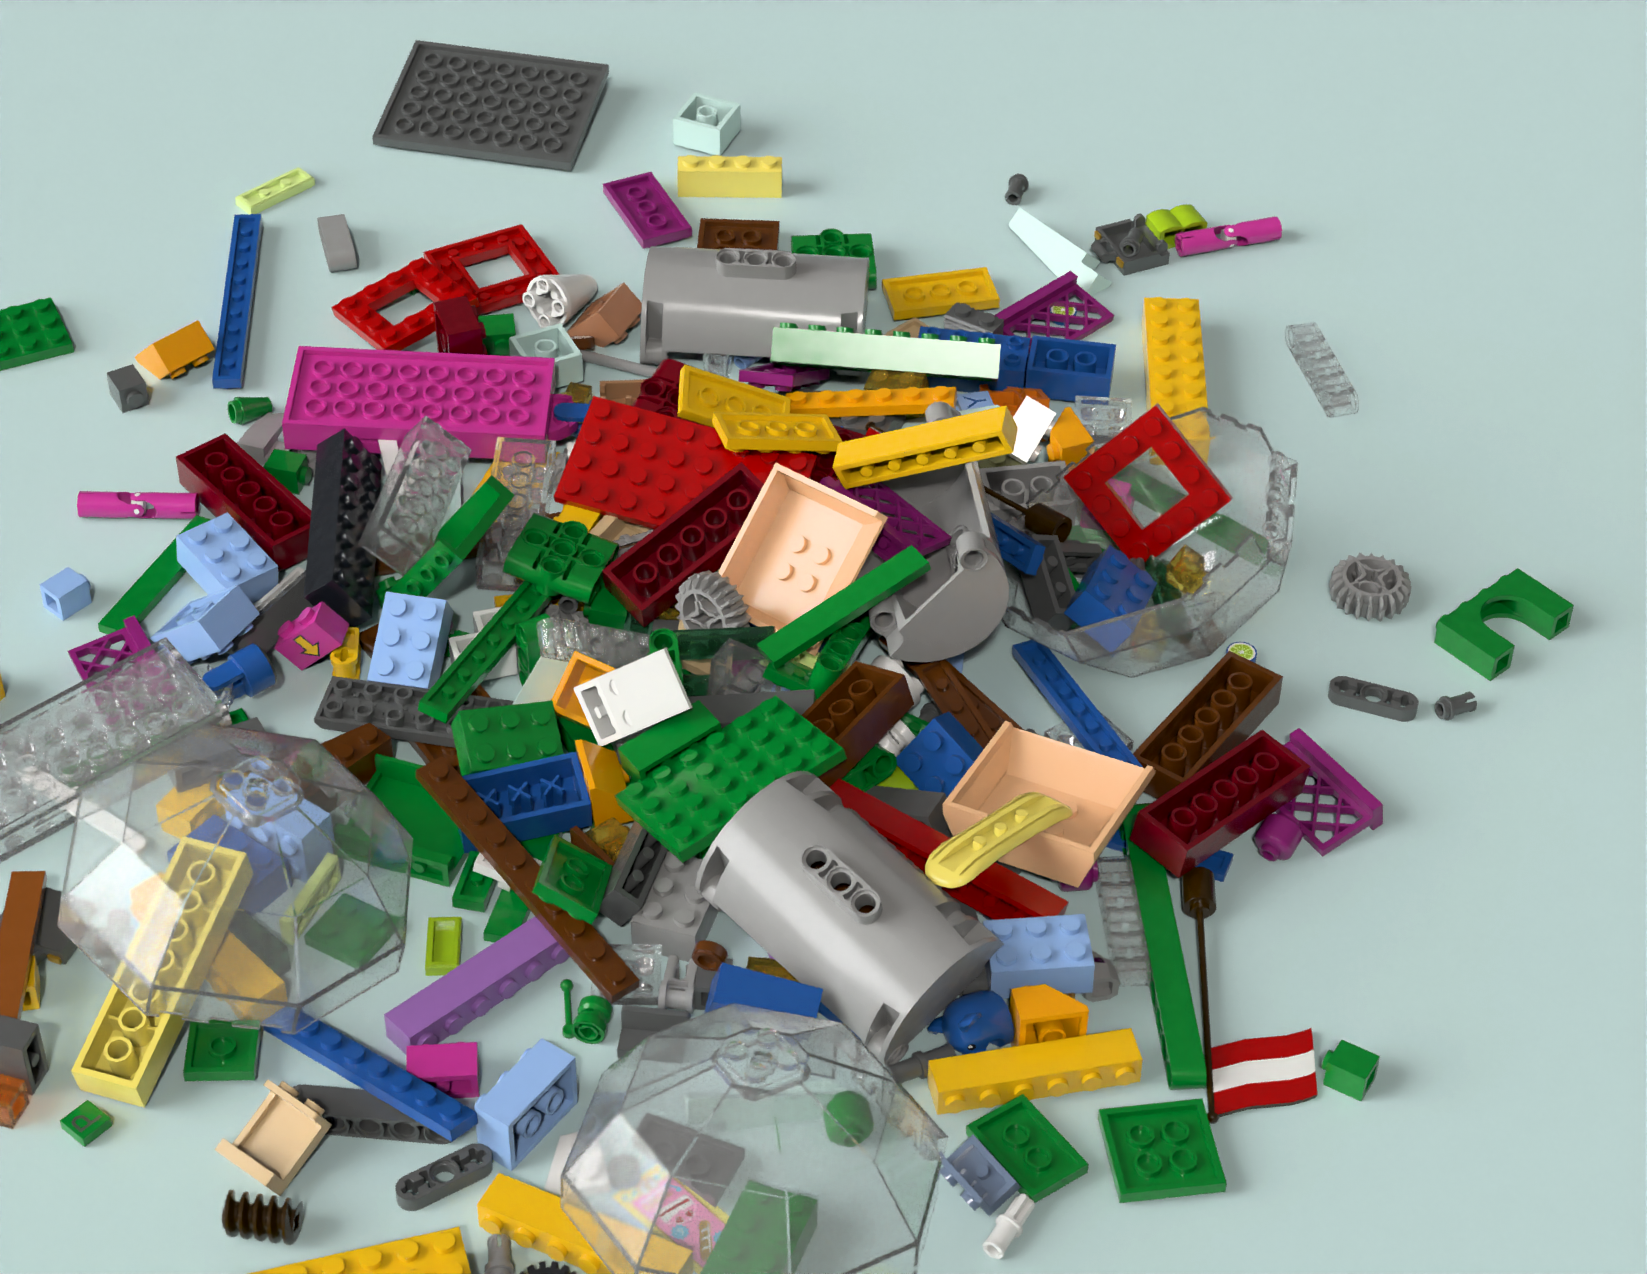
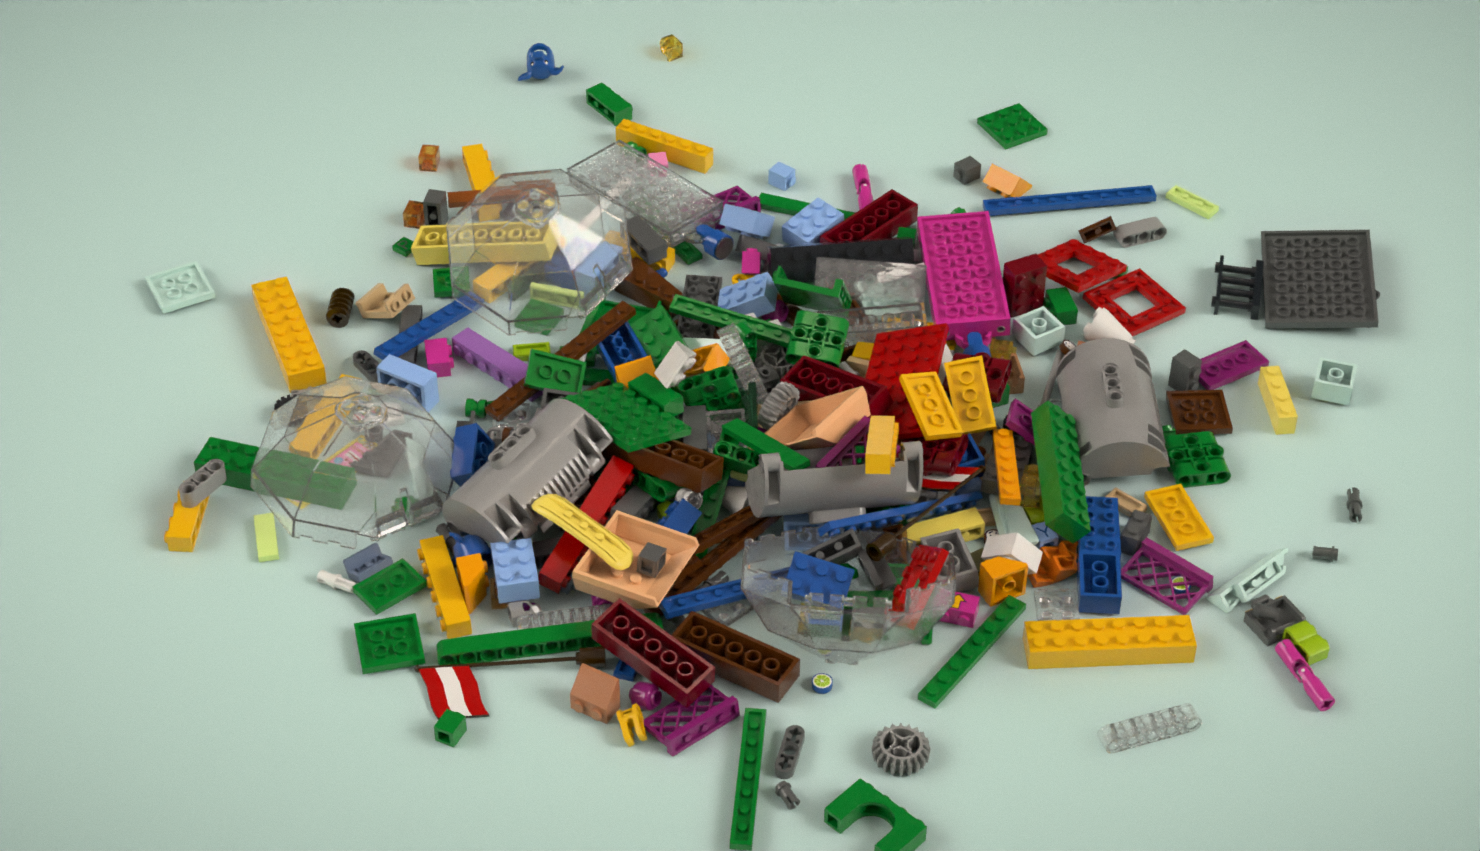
camera: 85 degrees right, 0 degrees up
(324, 277) = (1097, 229): none -> reddish brown slope
(488, 159) = (1254, 283): none -> black fence
(671, 228) = (1184, 371): none -> dark grey brick
(932, 152) = (1354, 504): none -> dark grey pin
(1042, 776) = (651, 560): none -> dark grey brick
(1288, 886) = (595, 694): none -> nougat slope
(1325, 856) = (632, 718): none -> yellow piece
(1429, 741) = (748, 779): none -> green plate

